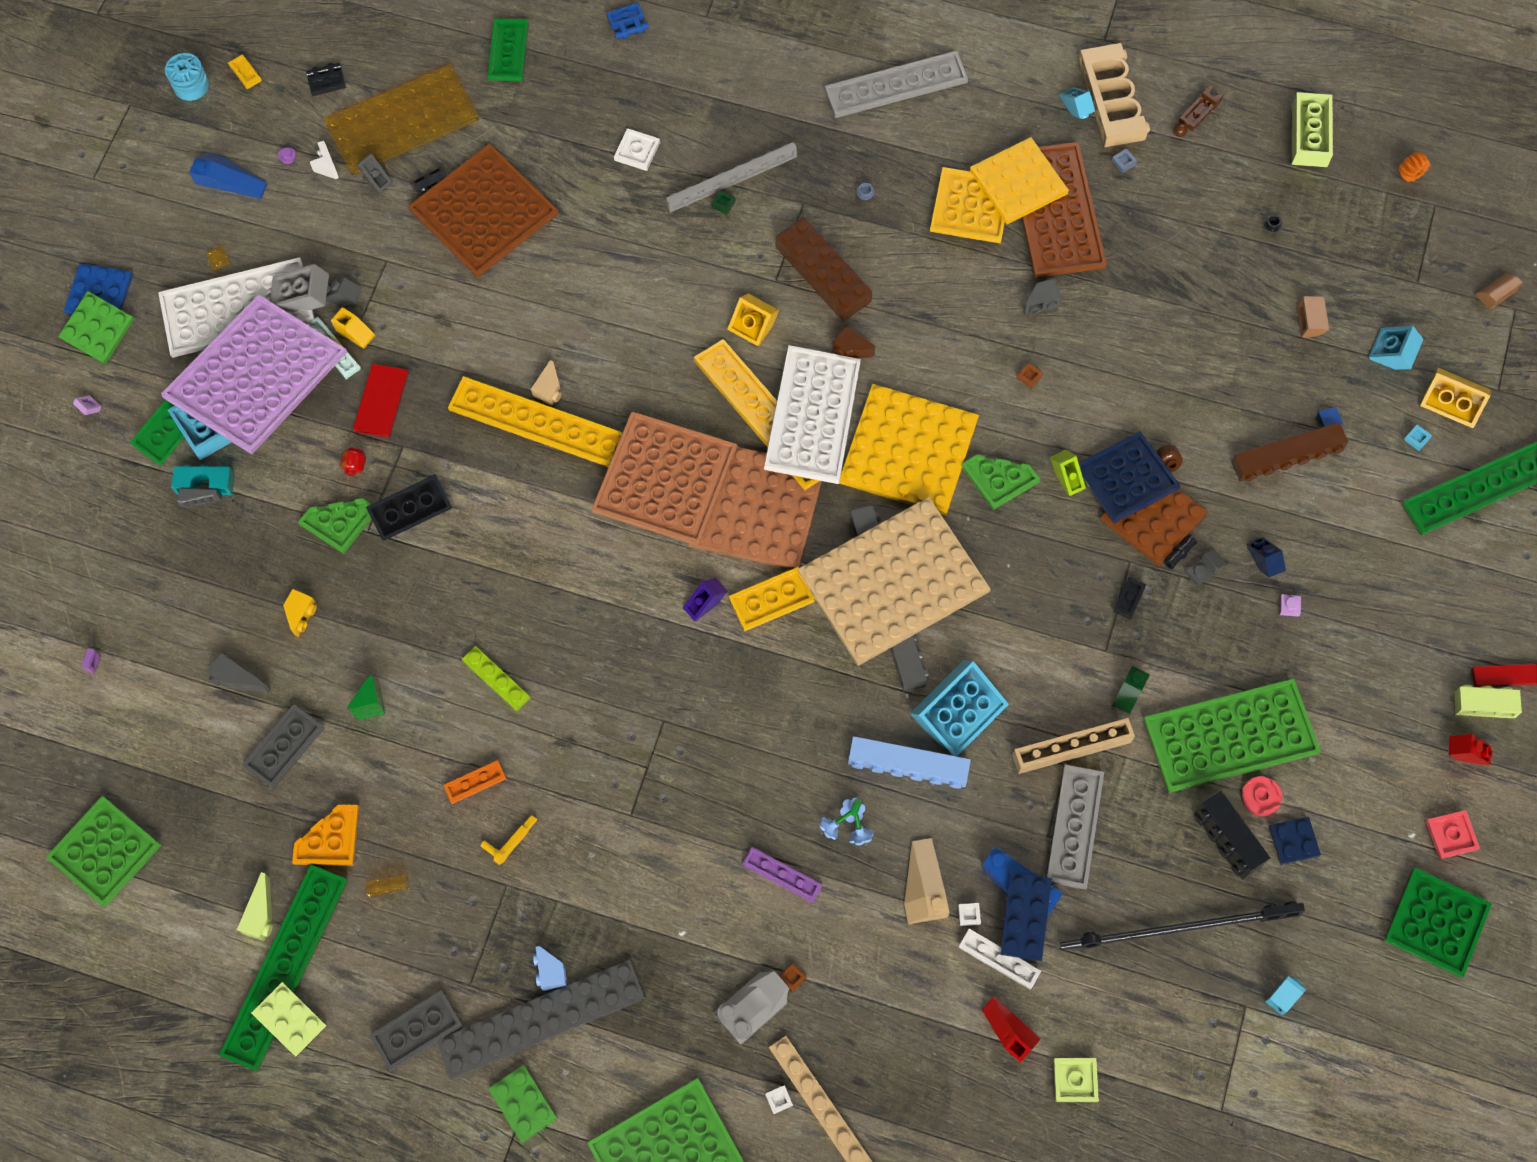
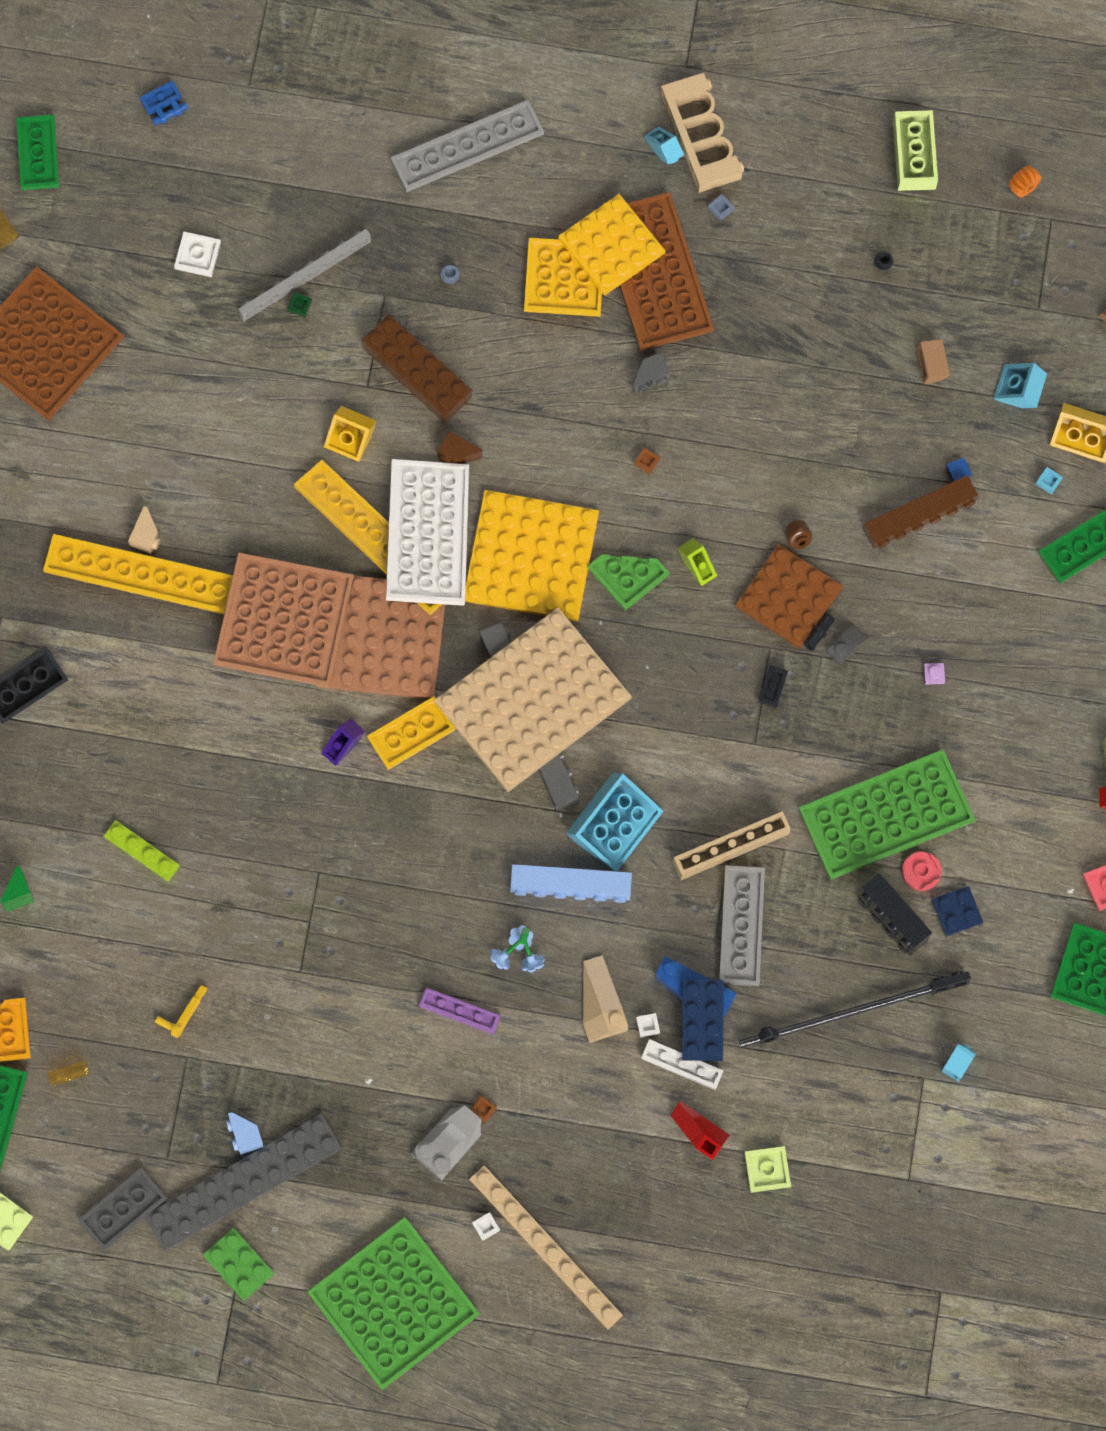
camera: 15 degrees left, 5 degrees up
(474, 782) = (138, 959): orange plate -> none
(1127, 477) = (758, 560): dark blue plate -> none
(1131, 690) = (783, 781): dark green slope -> none
(1197, 112) = (793, 142): reddish brown plate -> none
(1267, 557) = (906, 626): dark blue slope -> none

